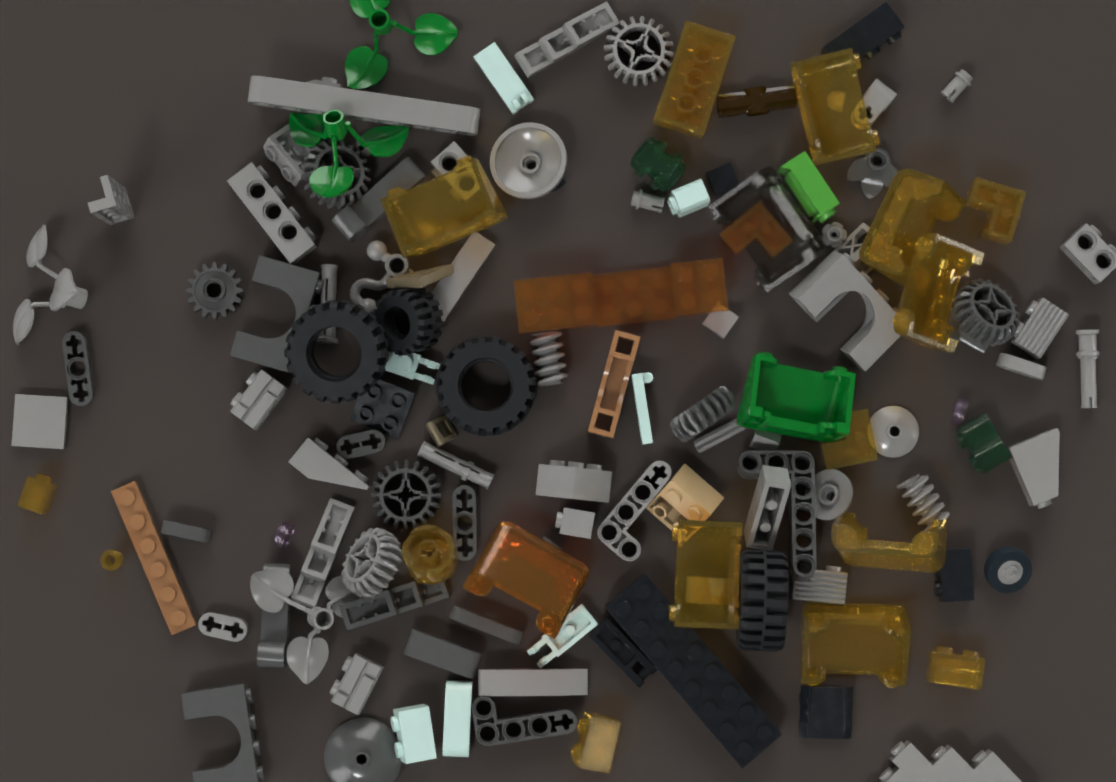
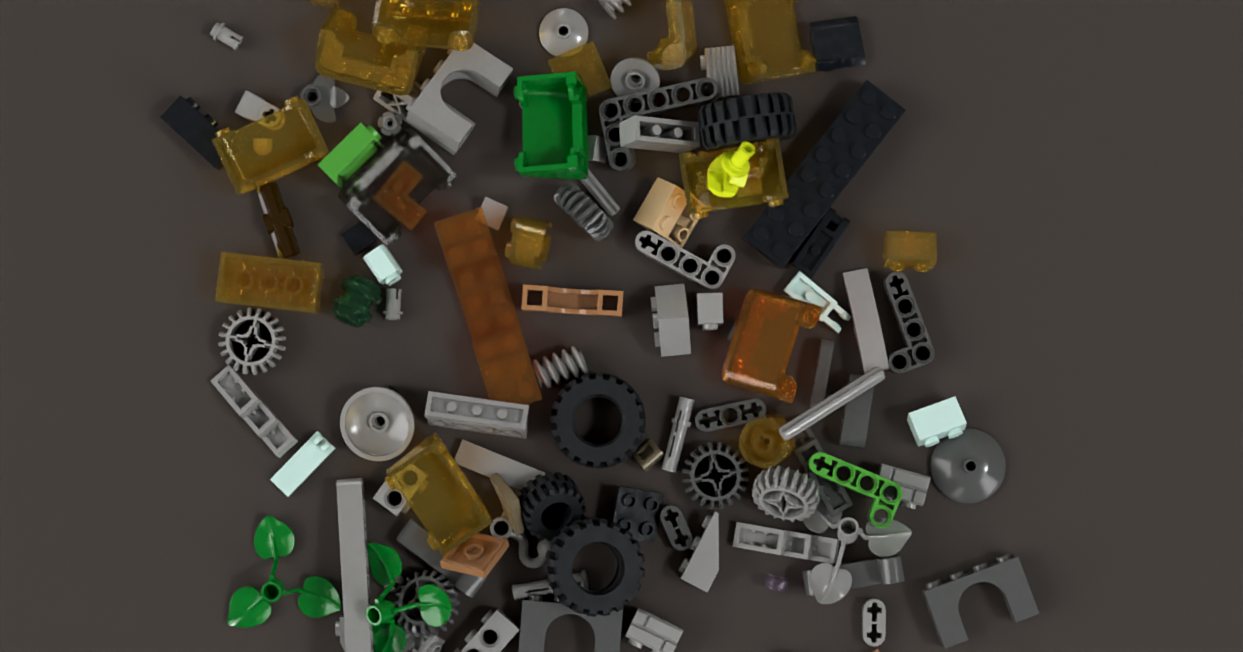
camera: 95 degrees left, 0 degrees up
(368, 633) = (853, 484): none -> bright green beam
(373, 233) = (475, 555): none -> medium nougat tile
(407, 366) = (594, 499): light aqua hinge -> none
(454, 628) = (832, 403): none -> light grey axle
(457, 718) = (914, 384): light aqua beam -> none
(516, 263) = (477, 414): none -> light grey fence
(638, 382) = (587, 271): light aqua hinge -> none
(682, 351) = (529, 242): none -> clear yellow brick
(714, 572) = (730, 171): none -> neon yellow piece

